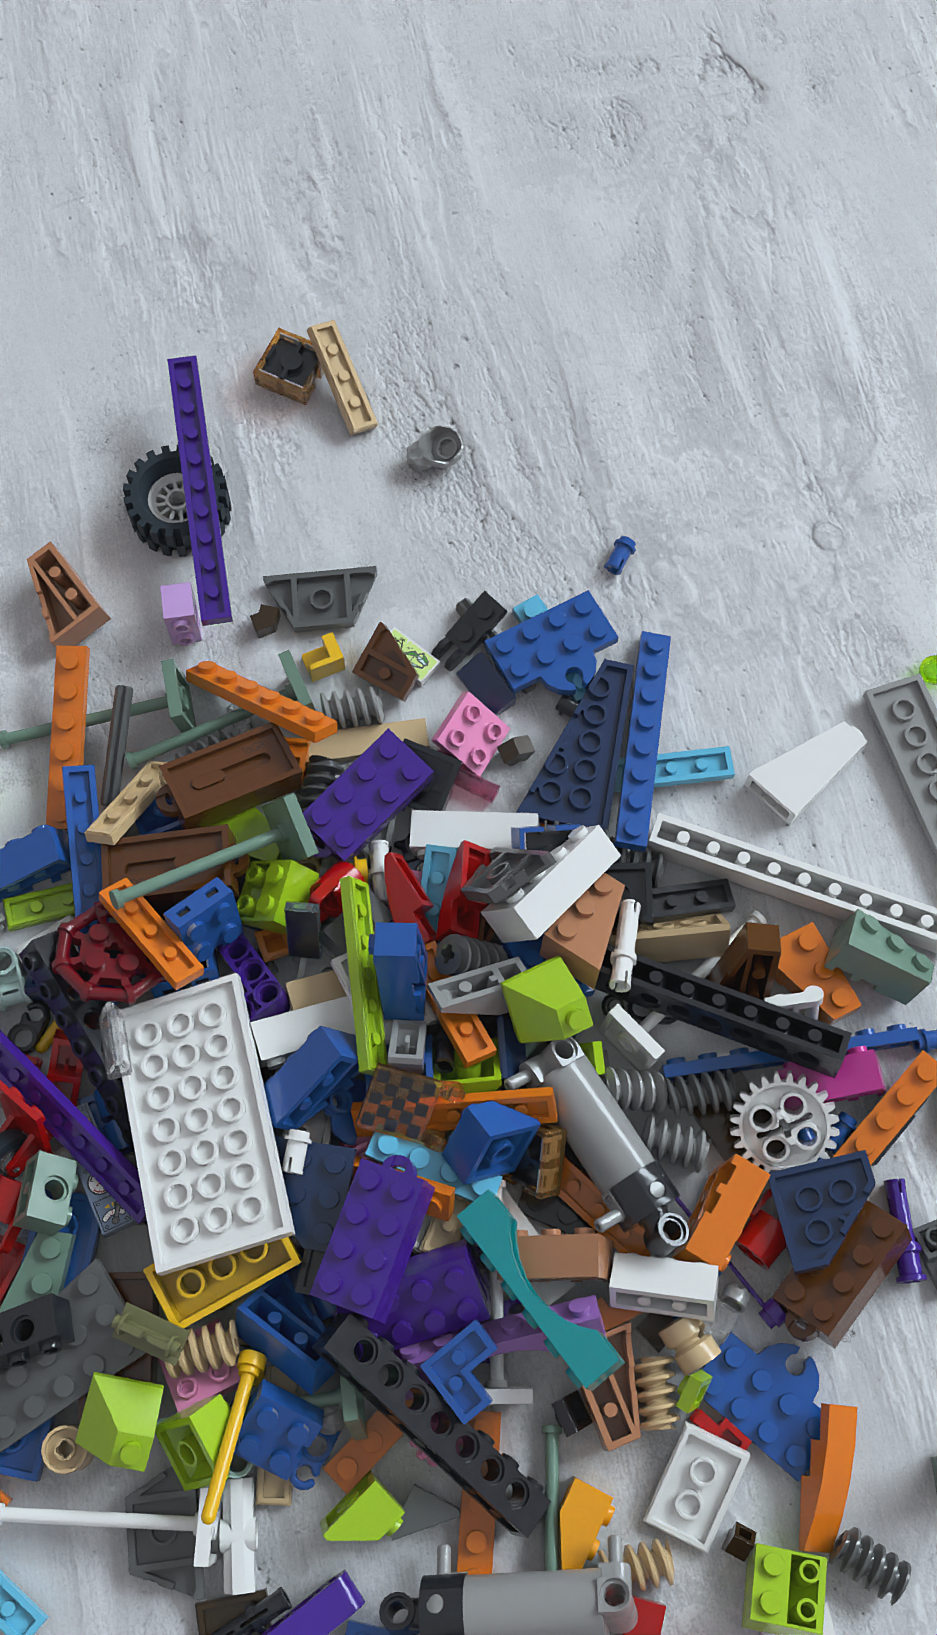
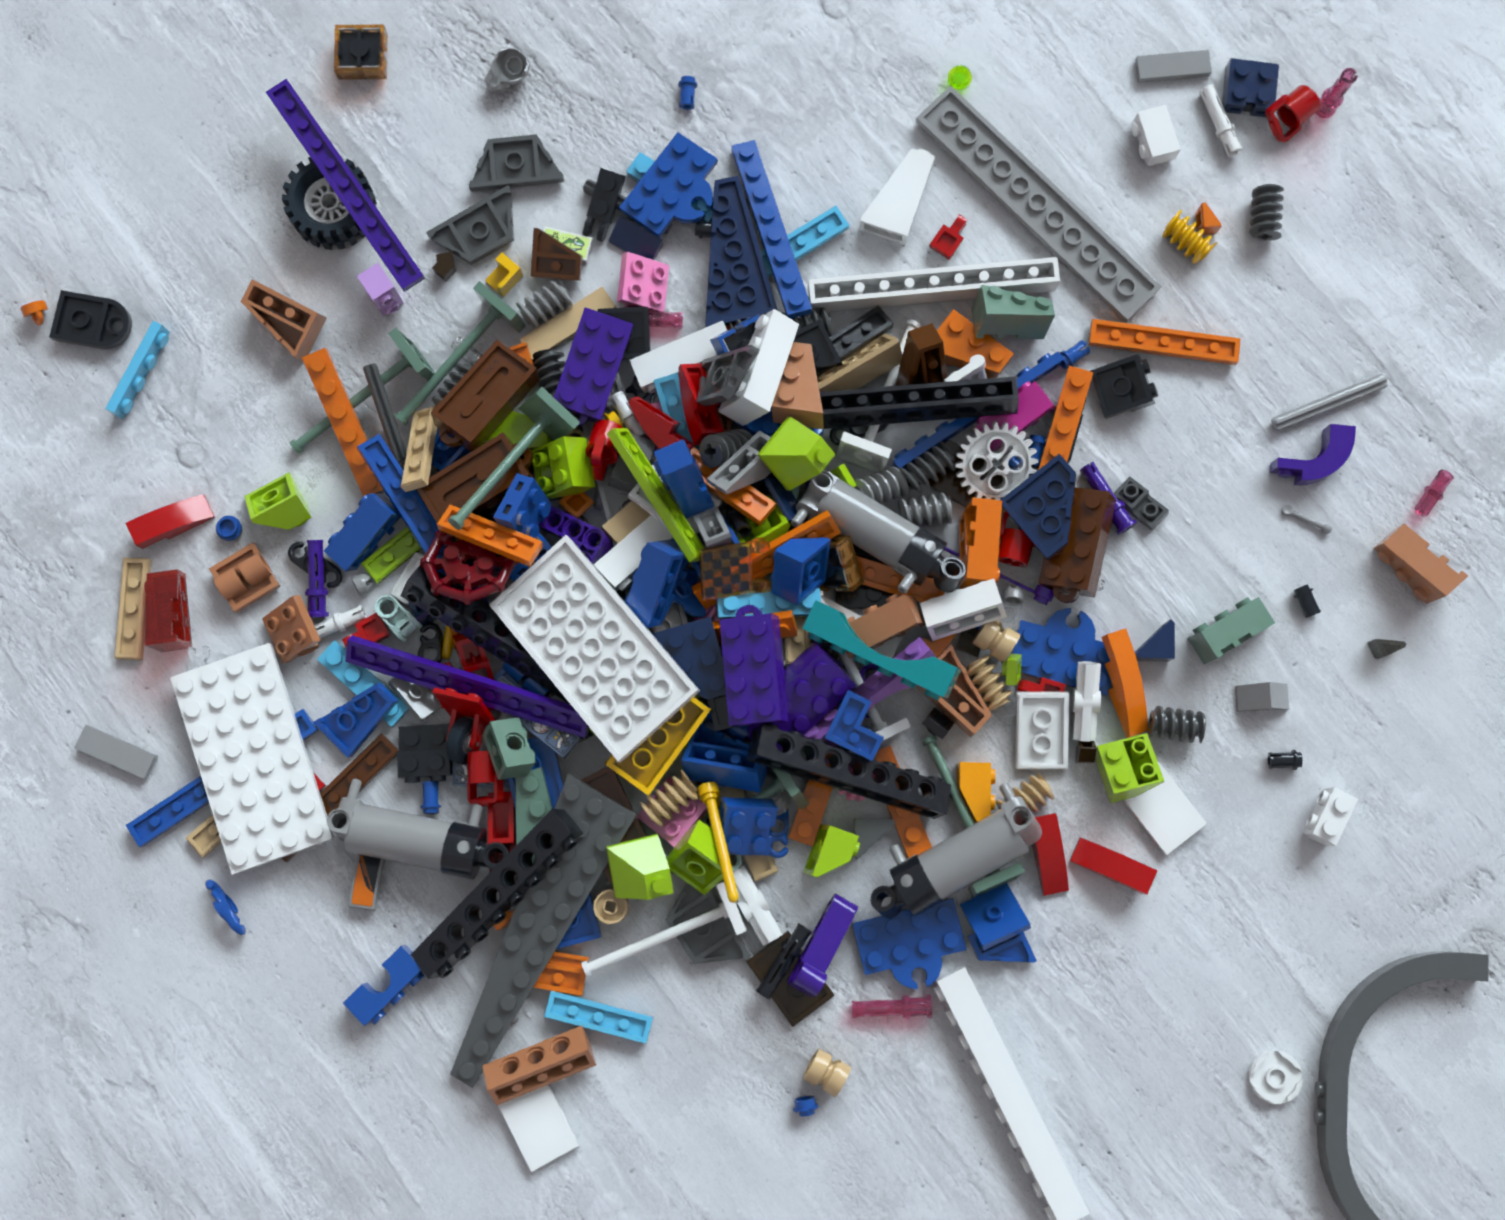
camera: 25 degrees left, 10 degrees up
(114, 1042) = (503, 623): clear slope -> none
(150, 1333) = (632, 803): olive hinge -> none
(262, 701) = (477, 329): orange plate -> none
(295, 1151) = (671, 637): white pin -> none
(303, 930) = (597, 483): black tile -> none
(342, 377) = (405, 43): tan tile -> none
(395, 548) = (514, 163): none -> dark grey wing
(516, 750) = (681, 279): dark brown piece -> none
(624, 953) = (833, 395): white pin -> none
(767, 1477) = (1086, 701): none -> white piece
(842, 842) = (948, 239): none -> red plate
(890, 1448) = (1160, 645): none -> dark blue slope

